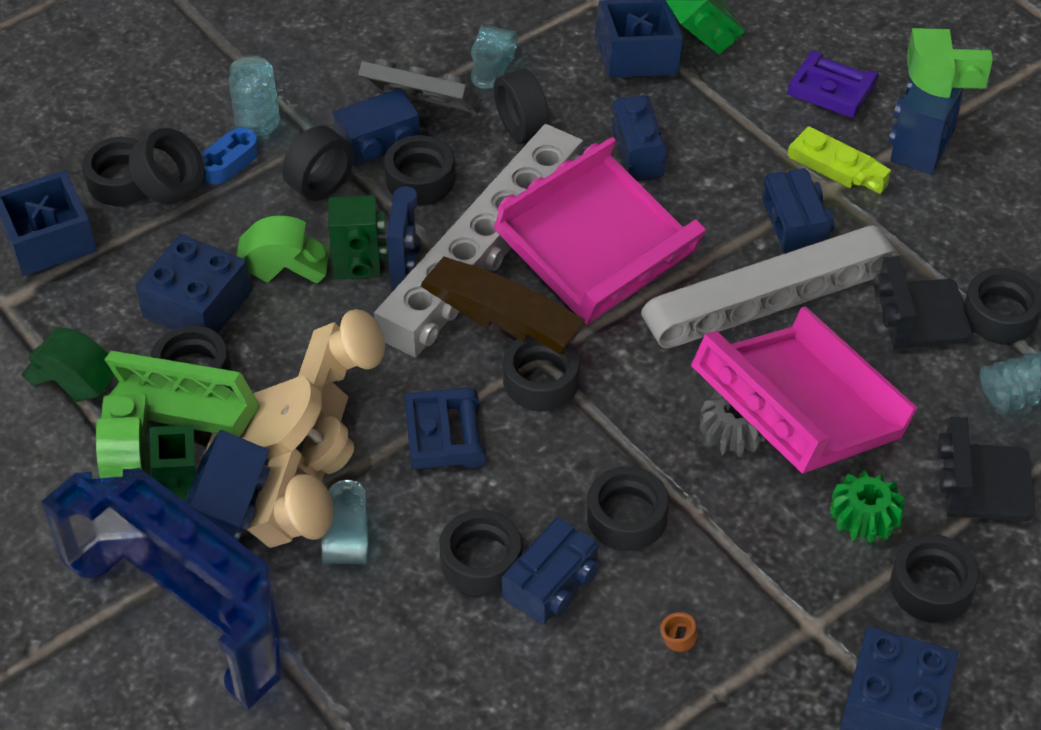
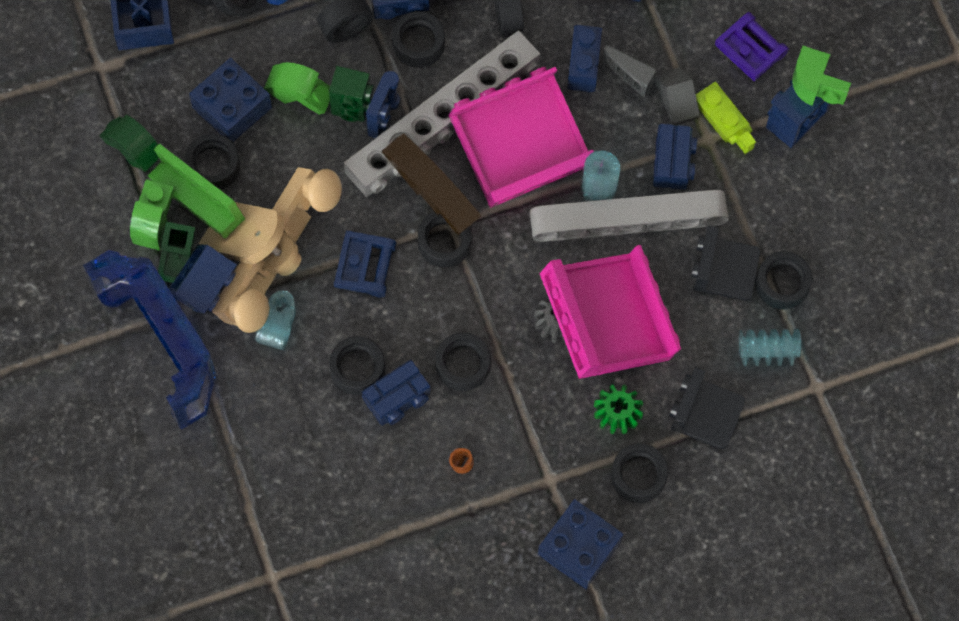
camera: 15 degrees right, 20 degrees up
(708, 141) = (632, 71): none -> dark grey slope
(718, 242) = (600, 176): none -> clear light blue piece
(768, 148) = (678, 95): none -> dark grey slope

